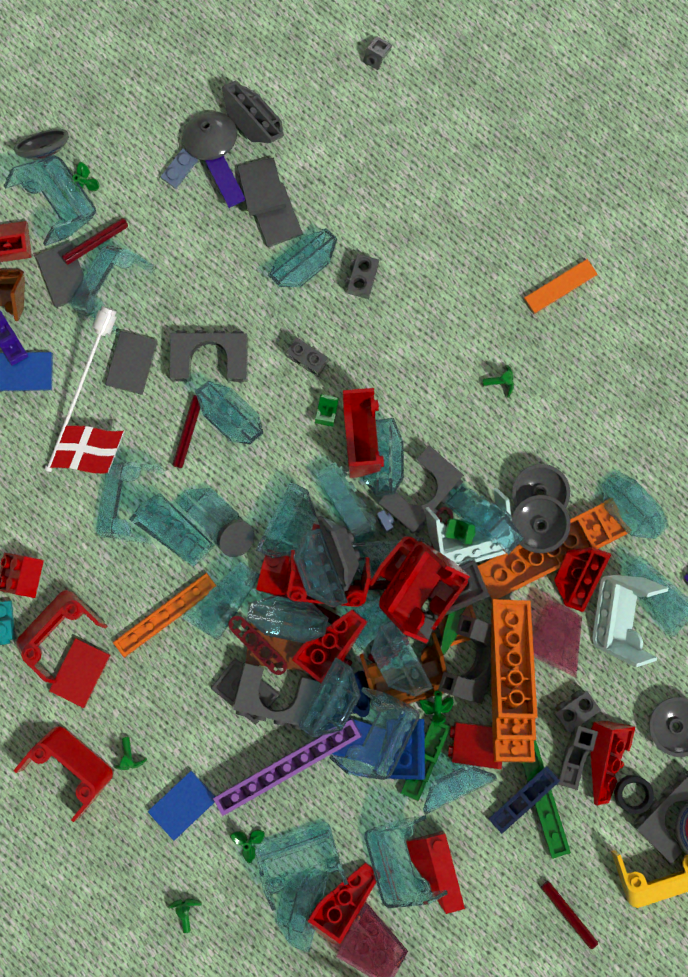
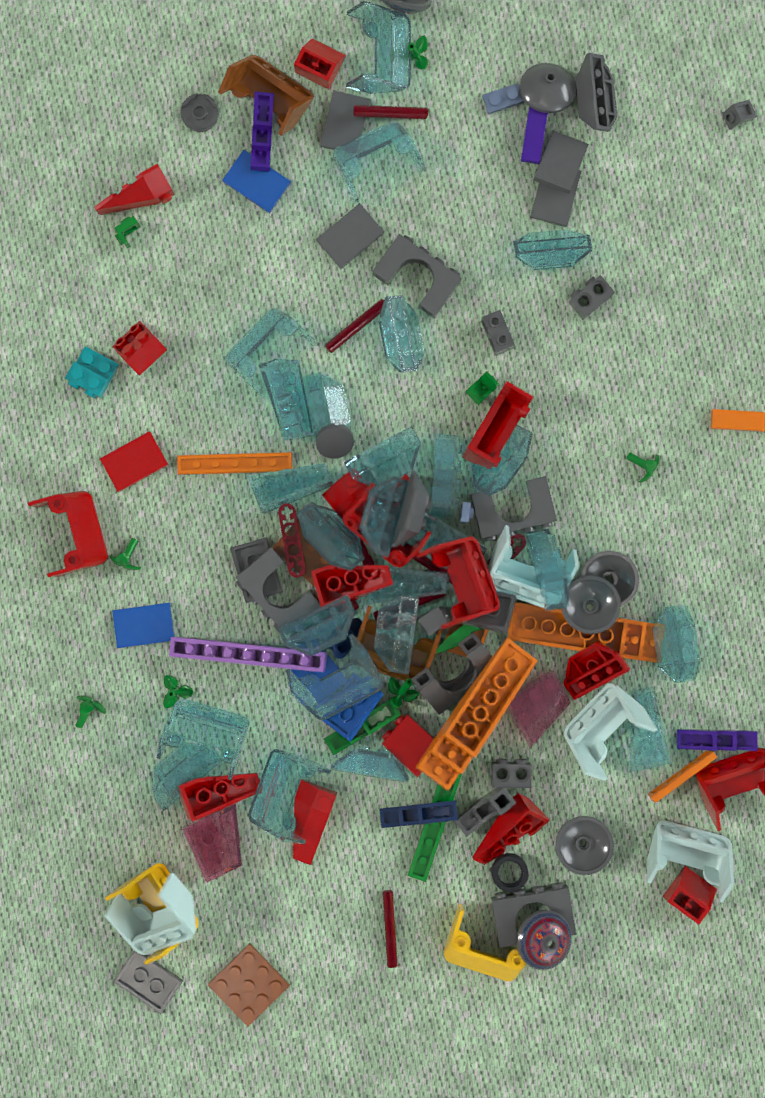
camera: 35 degrees right, 5 degrees up
(64, 605) = (158, 398): red windscreen -> none
(85, 446) = (263, 278): flag -> none
(413, 585) = (451, 581): red windscreen -> none
(460, 530) = (522, 563): green bracket -> none

